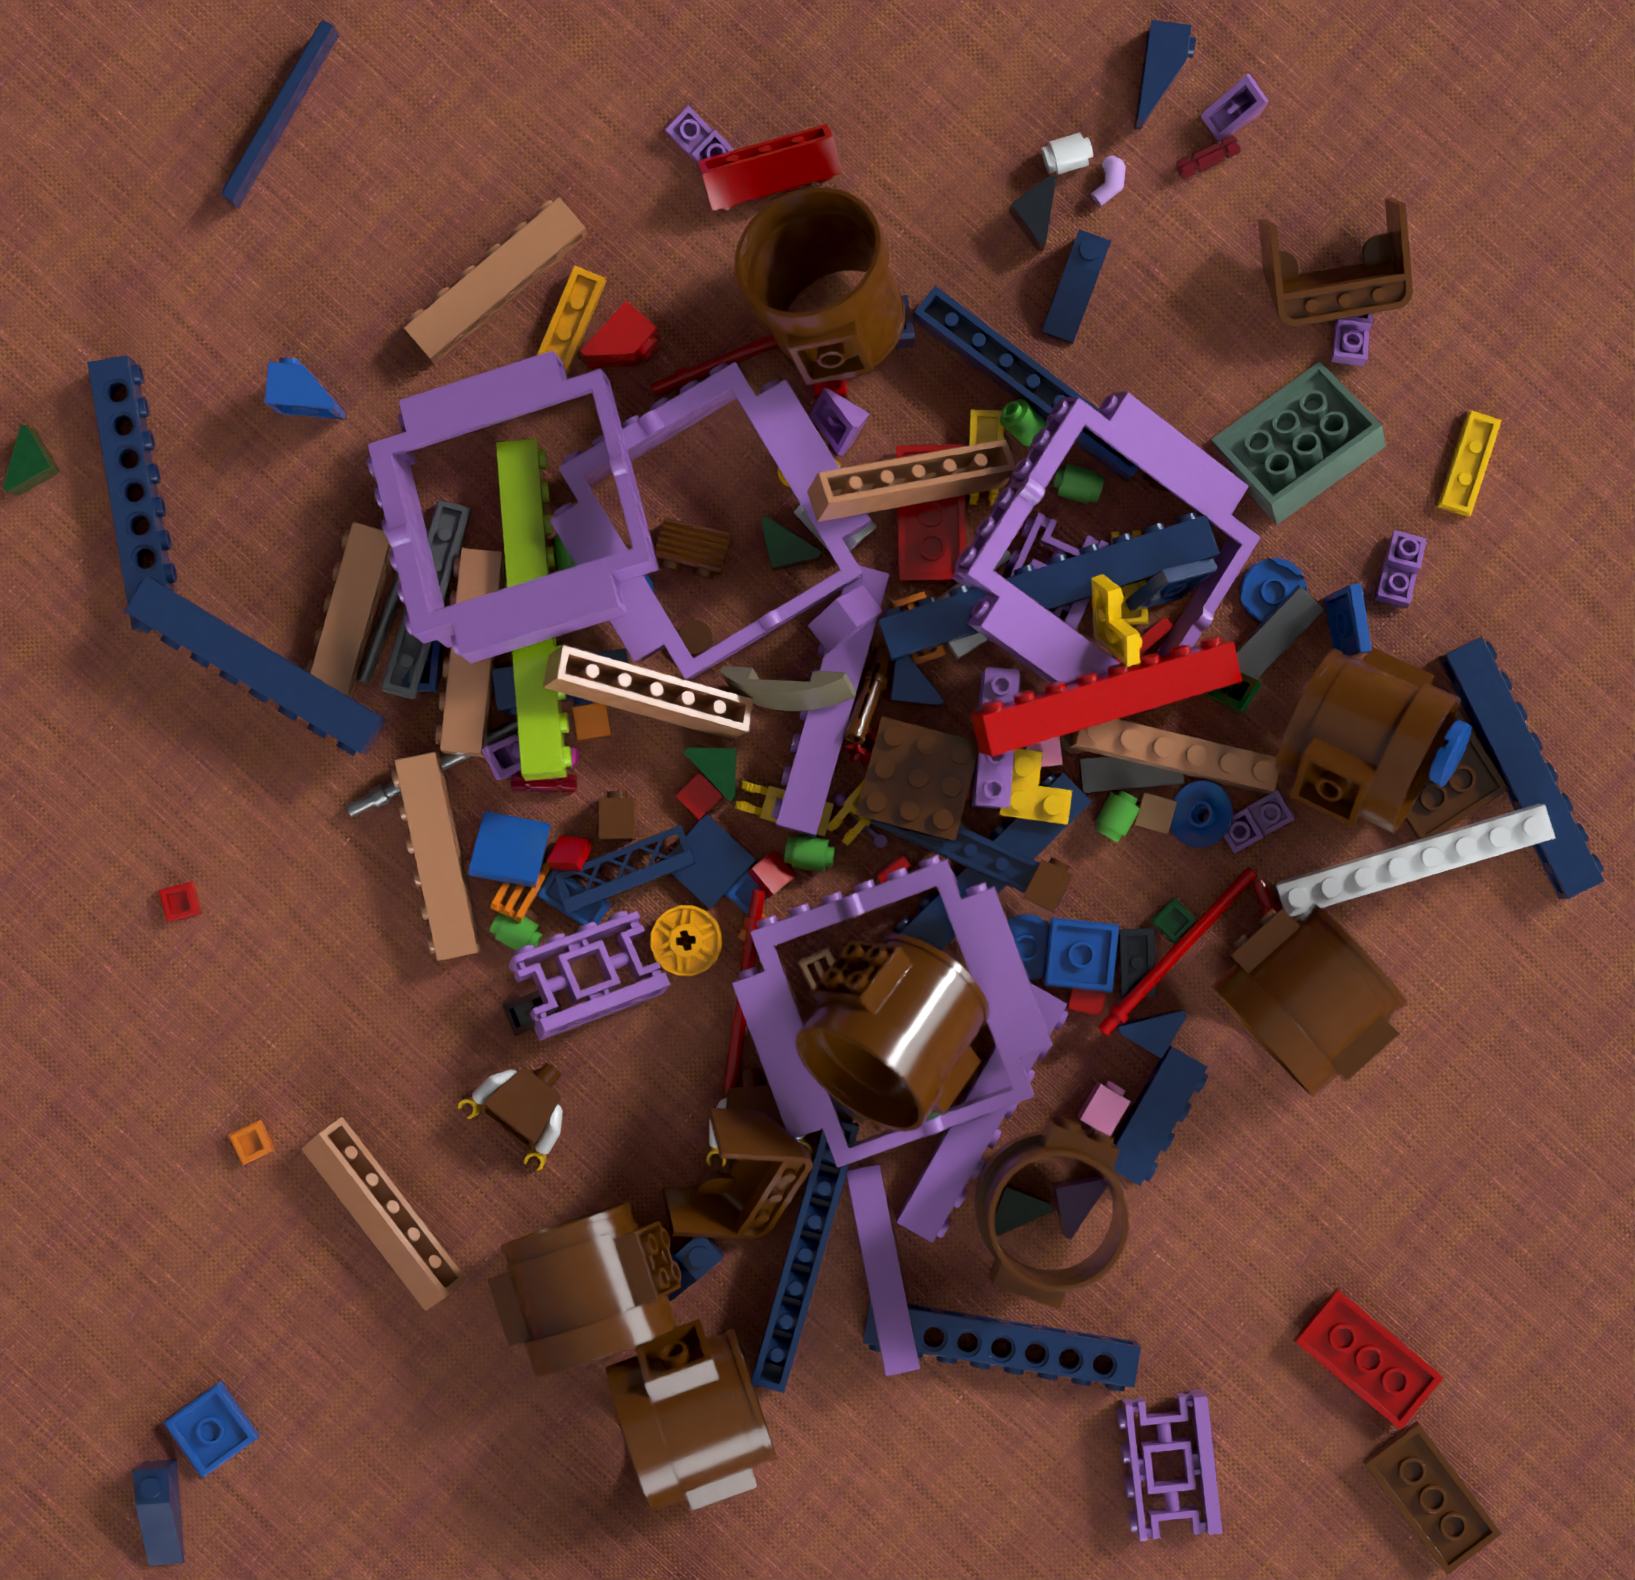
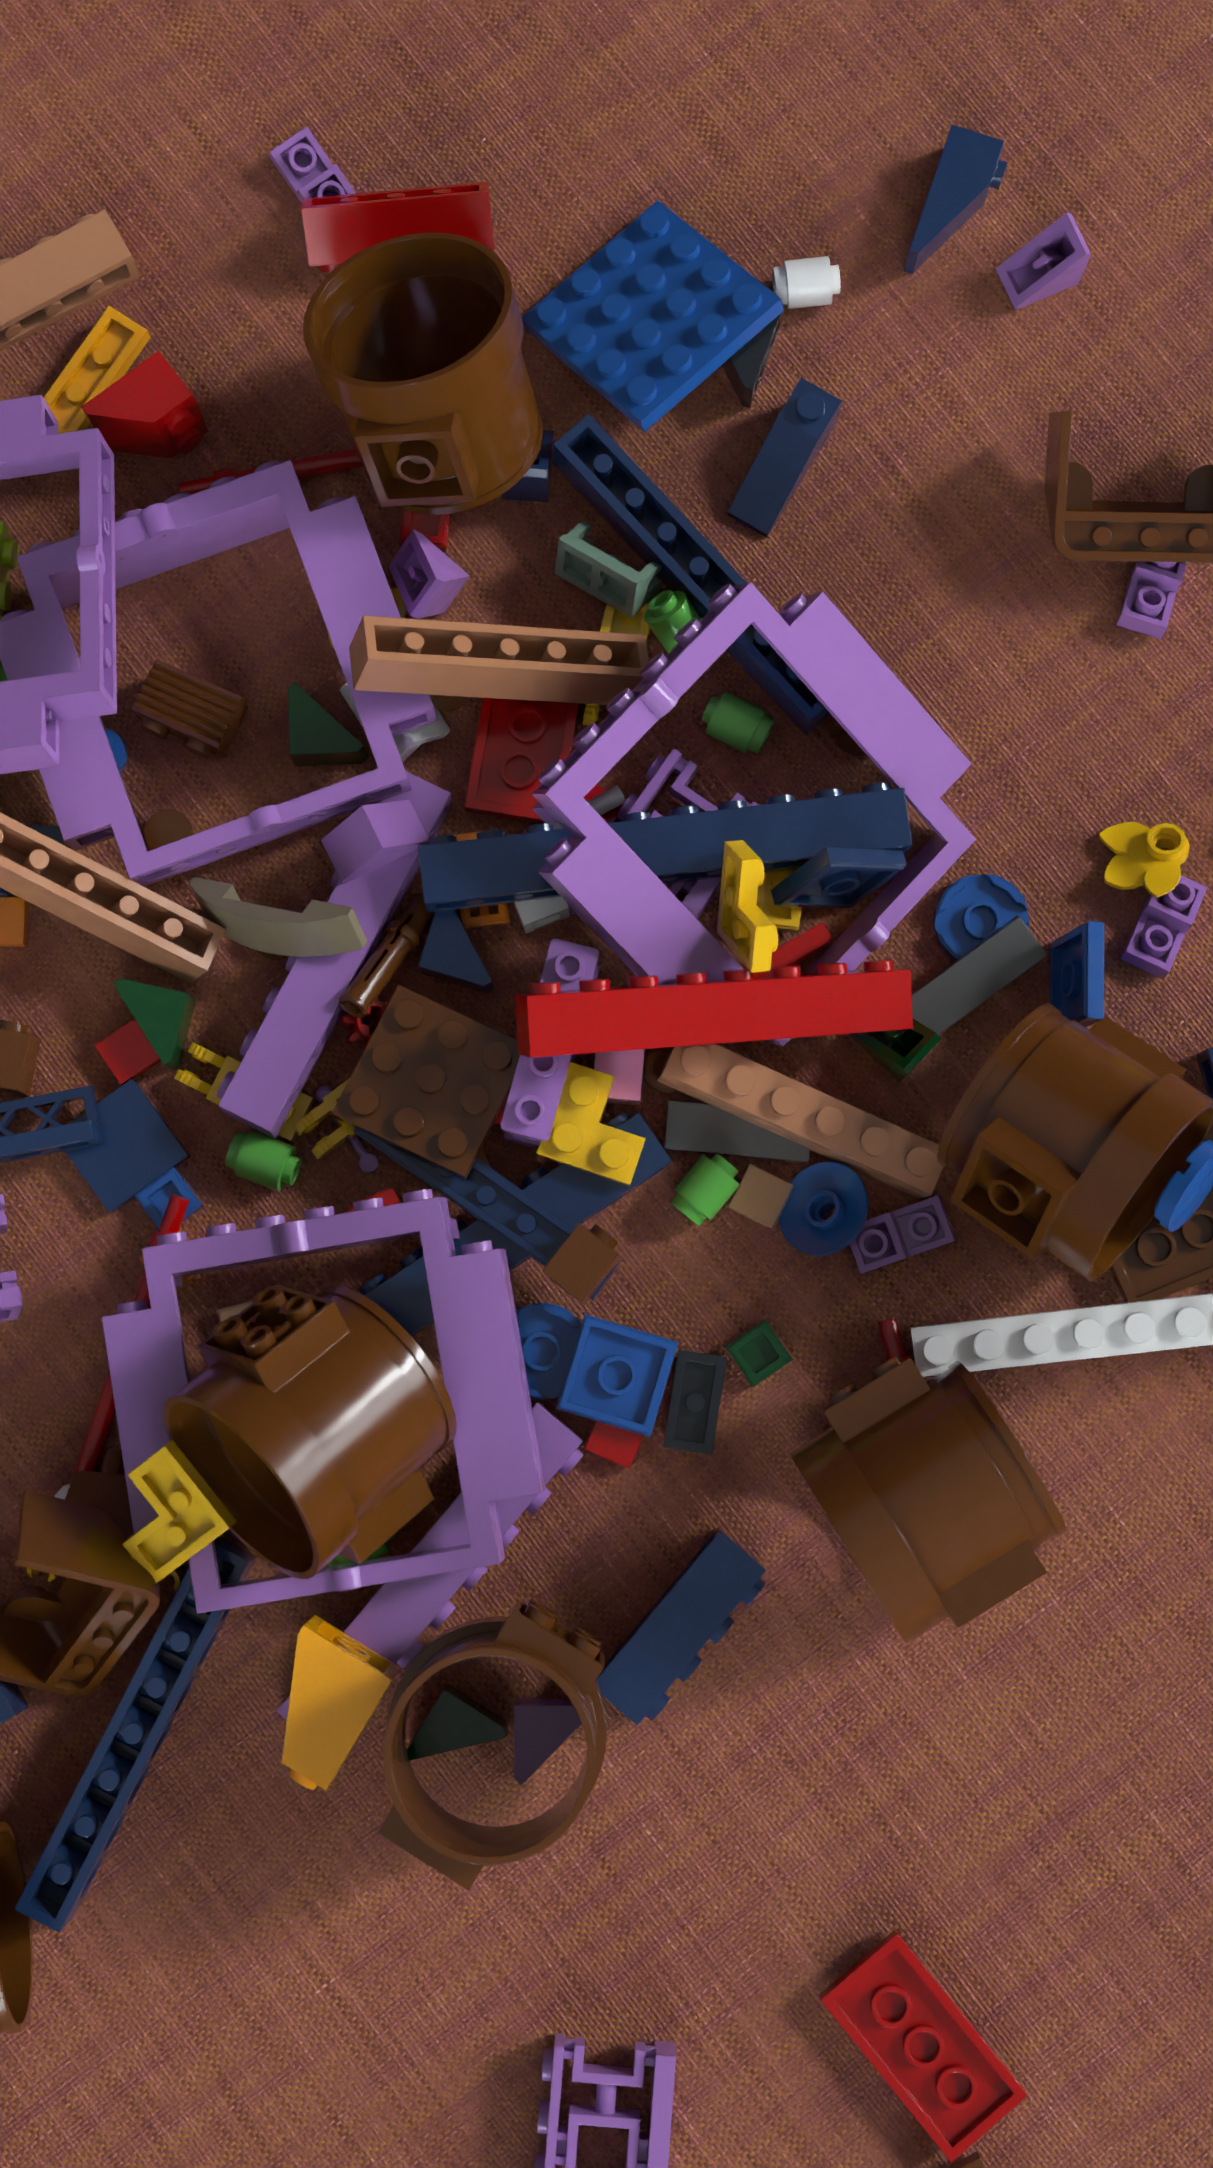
camera: 10 degrees right, 5 degrees down
(674, 956) = (37, 1243): light orange wheel -> none
(771, 874) = (204, 1179): red tile -> none
(820, 1100) = (186, 1509): none -> yellow plate
(882, 1270) = (241, 1780): medium lavender tile -> none
(938, 1208) = (330, 1700): none -> light orange slope
(963, 200) = (652, 315): none -> blue plate
(966, 395) = (605, 574): none -> sand green hinge
(1104, 1107) = (608, 1601): bright pink brick -> none
(1114, 180) = (863, 330): lavender arm -> none
(1119, 1013) = (653, 1468): red bar -> none
(1122, 1352) = (422, 1909): dark blue brick -> none
(1155, 1031) = (699, 1506): dark blue slope -> none
(1208, 157) = (996, 323): dark red axle -> none
(1300, 442) = (1055, 723): sand green slope -> none
(1376, 529) = (1139, 858): none -> yellow plate

